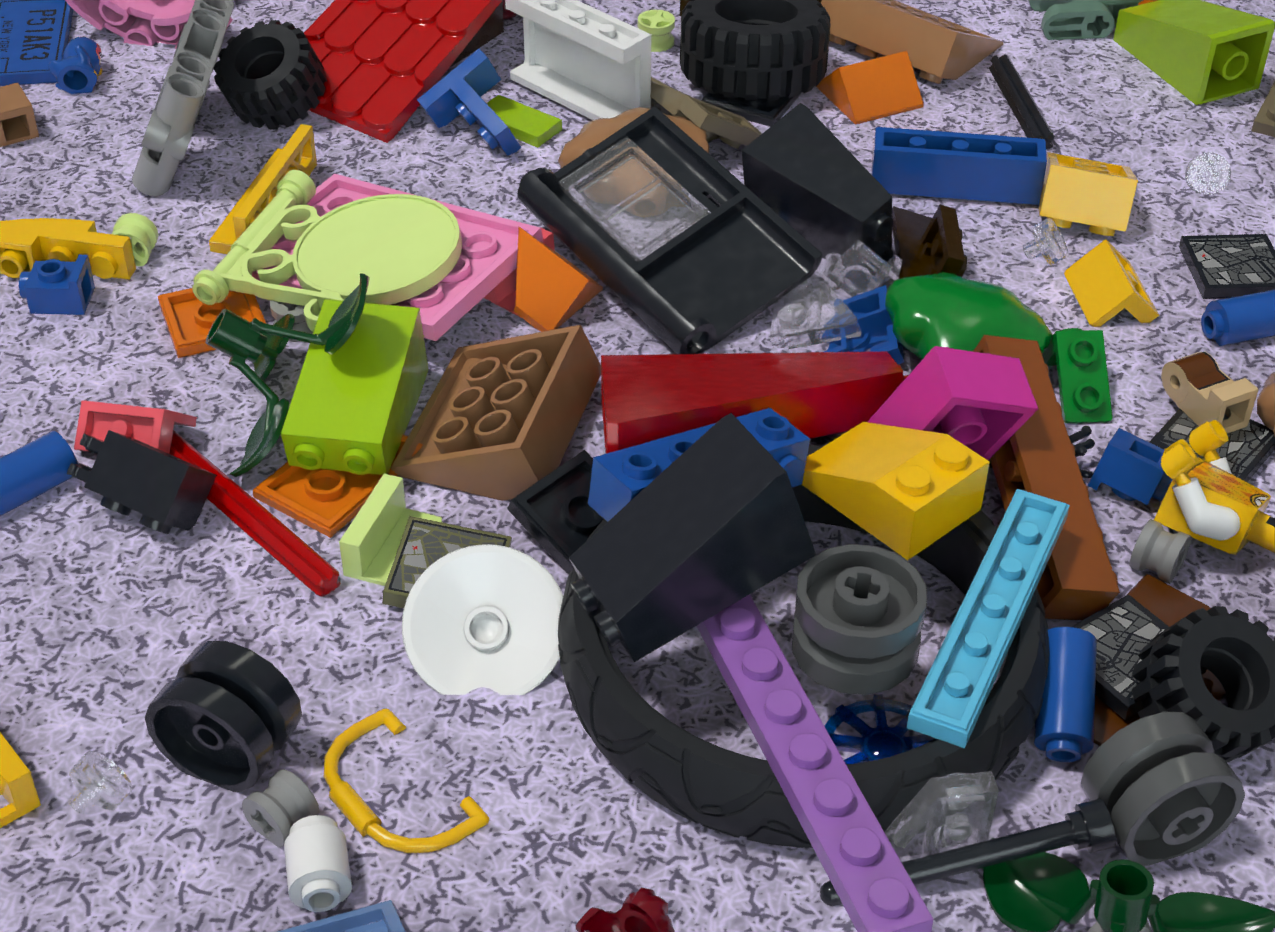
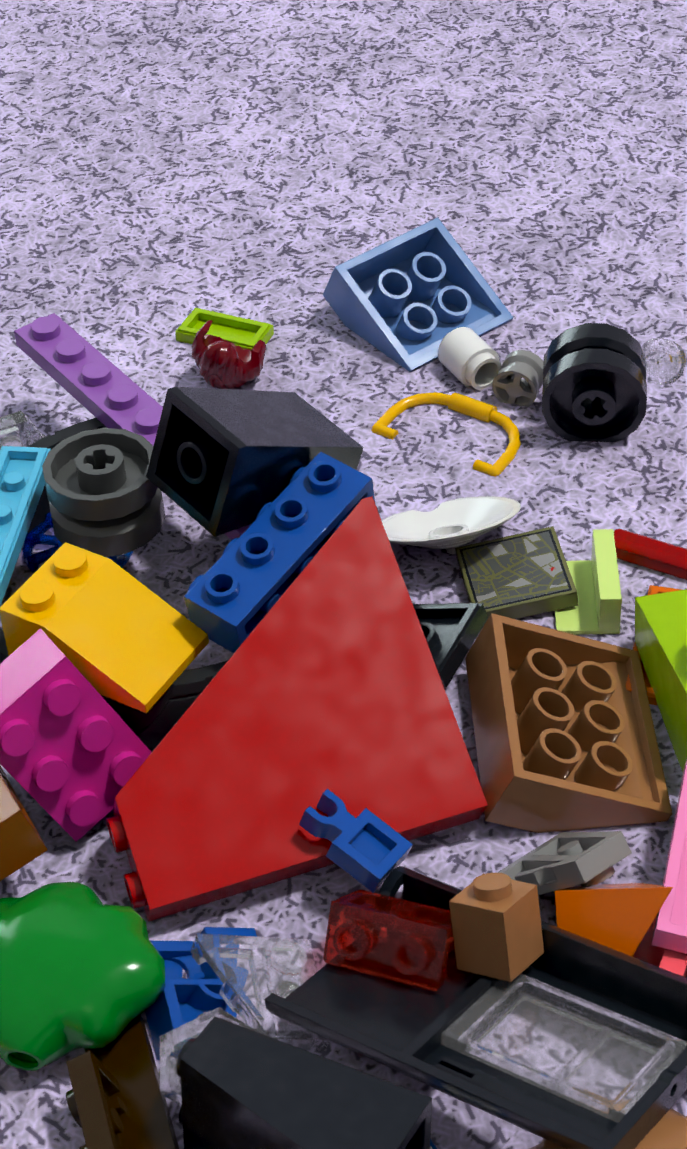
camera: 165 degrees right, 0 degrees up
(564, 300) = (570, 860): none -> light grey wing
(648, 245) = (496, 926): none -> medium nougat brick
(709, 288) = (389, 938): none -> clear red bracket
(716, 333) = (359, 845): none -> blue plate

